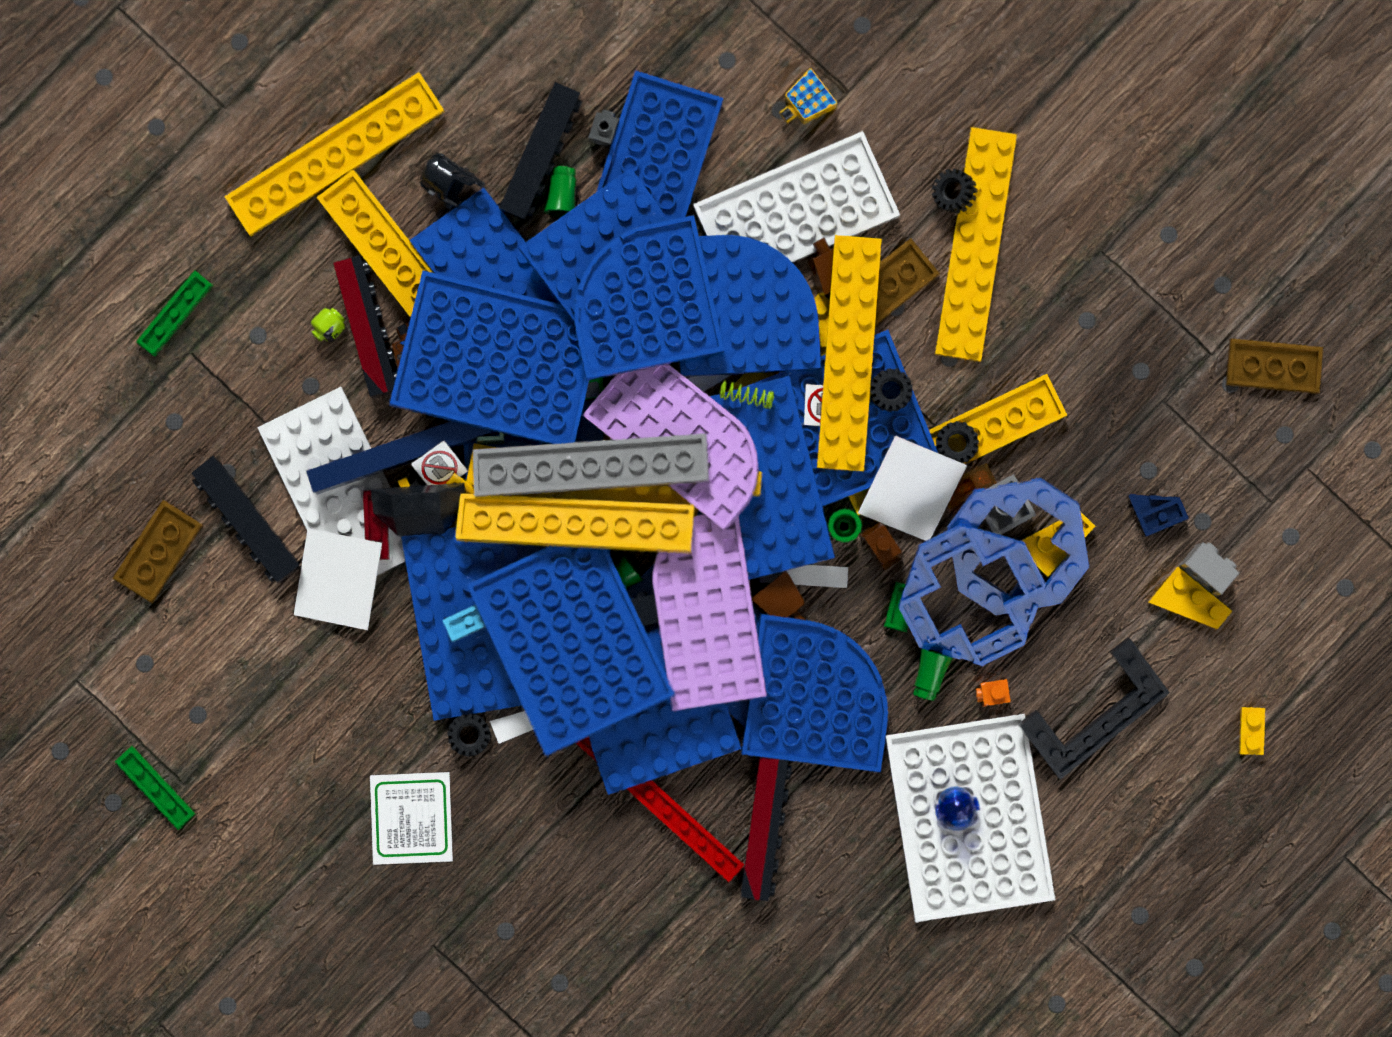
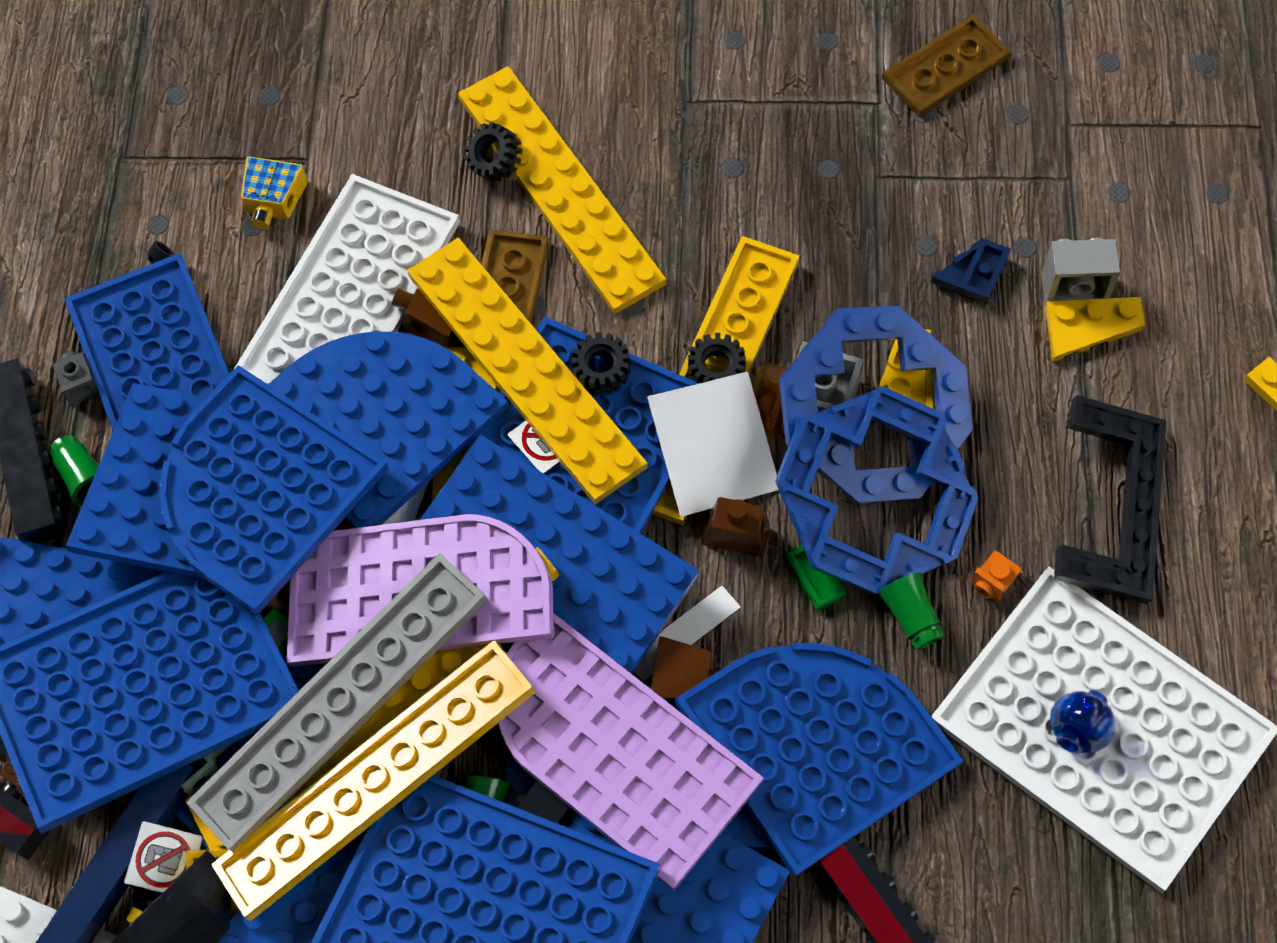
camera: 40 degrees left, 20 degrees down
(712, 85) = (158, 252): none -> black hinge
(769, 400) = (484, 476): lime piece -> none
(844, 516) = (679, 531): green plant -> none

